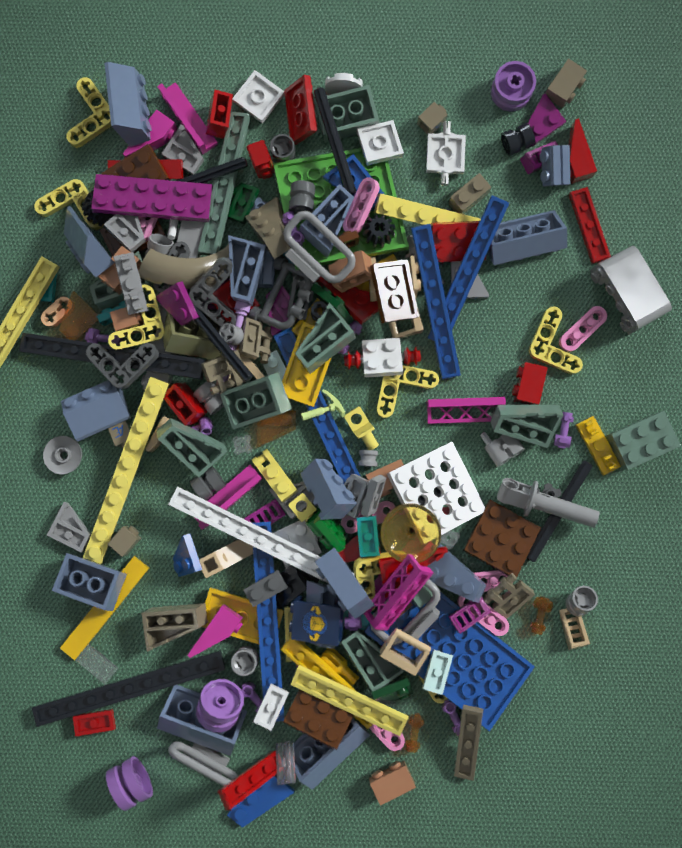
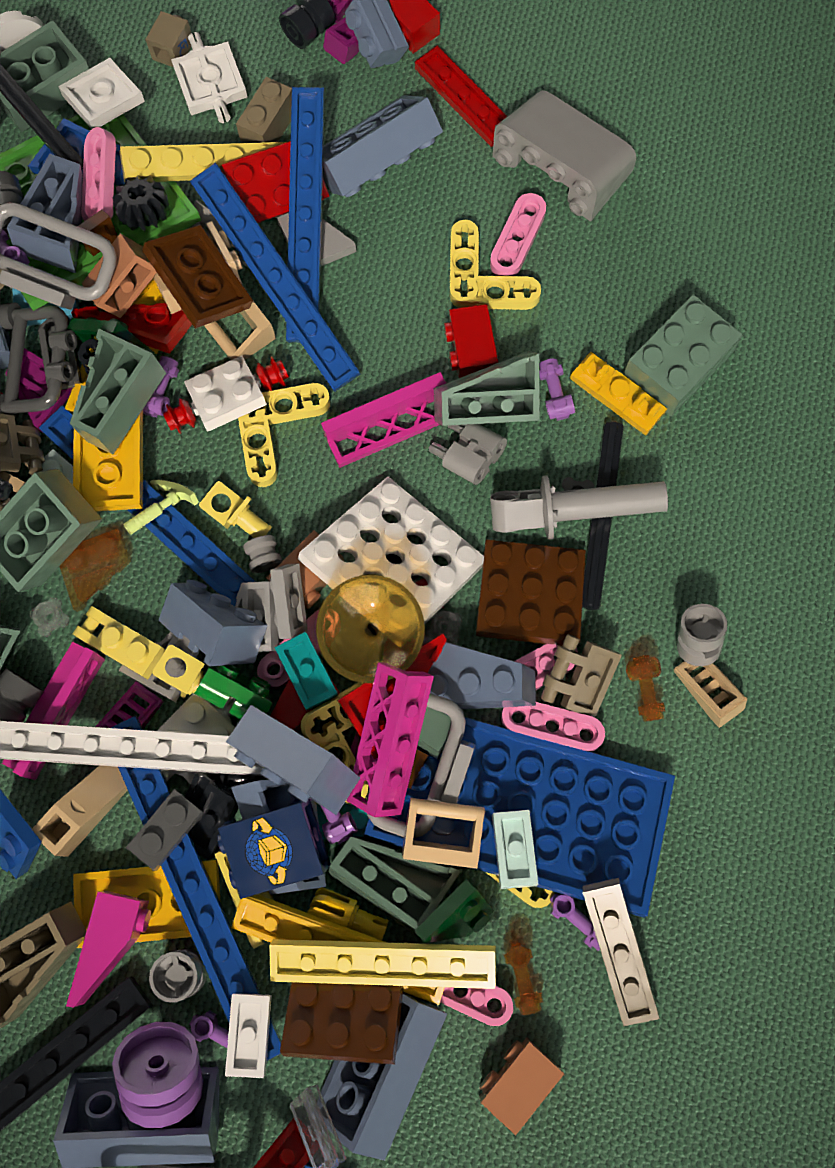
camera: 20 degrees left, 10 degrees down
(461, 628) = (512, 754): magenta slope -> none

